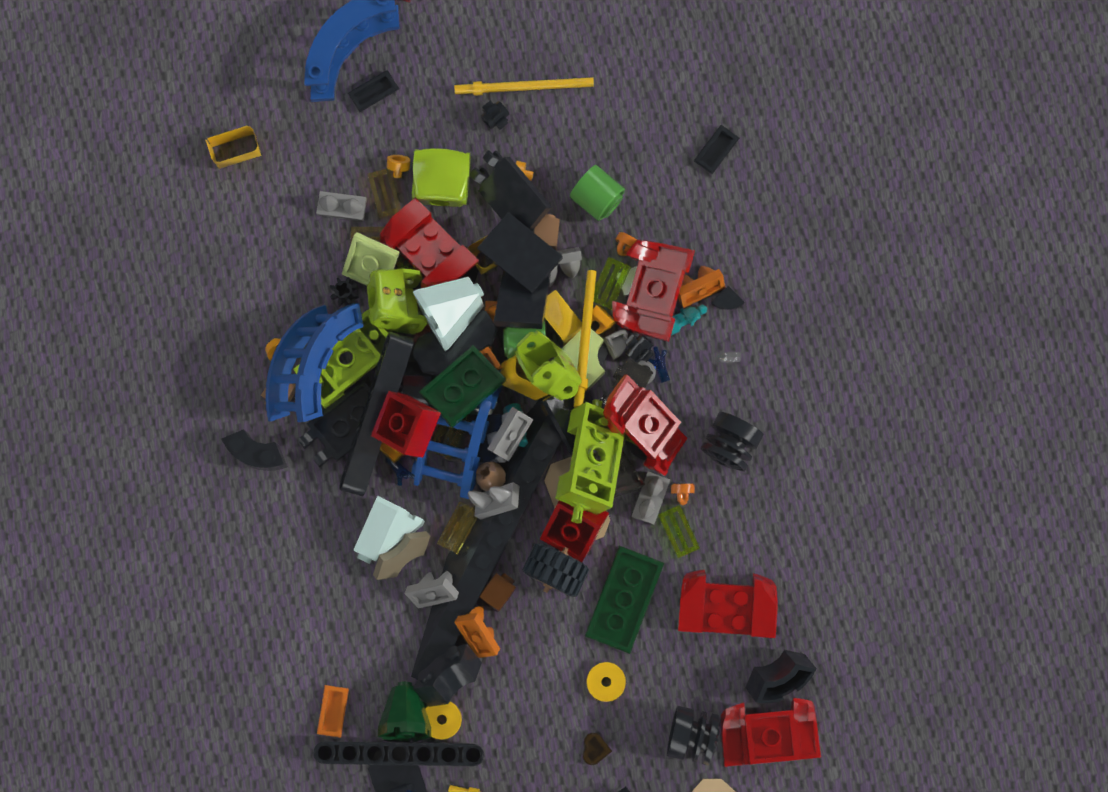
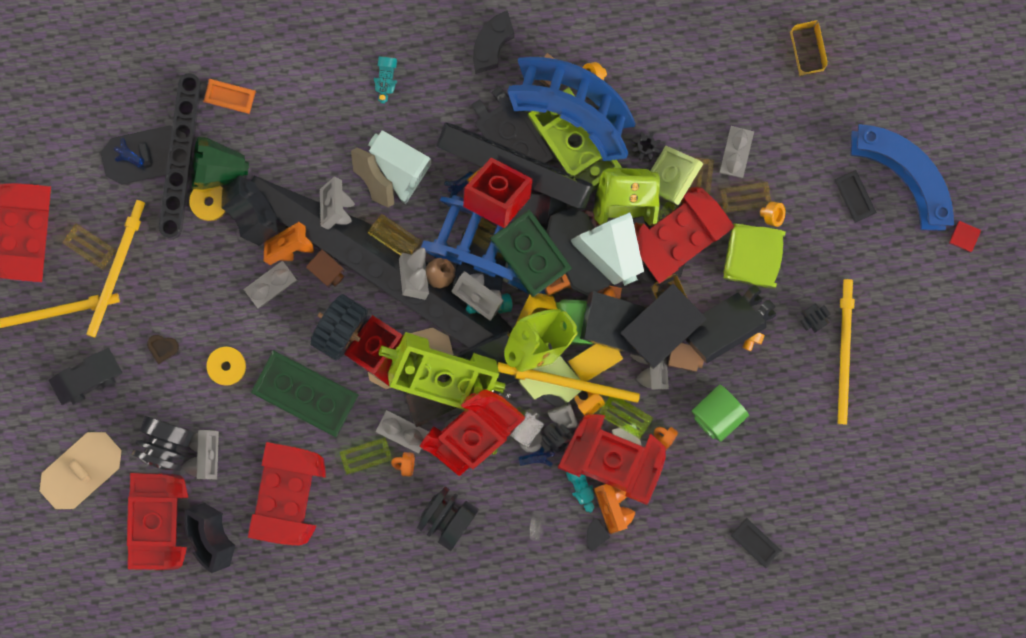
camera: 95 degrees right, 5 degrees up
(305, 555) = (384, 83): none -> teal piece
(519, 646) = (270, 284): none -> light grey tile
(707, 690) = (206, 462): none -> light grey tile

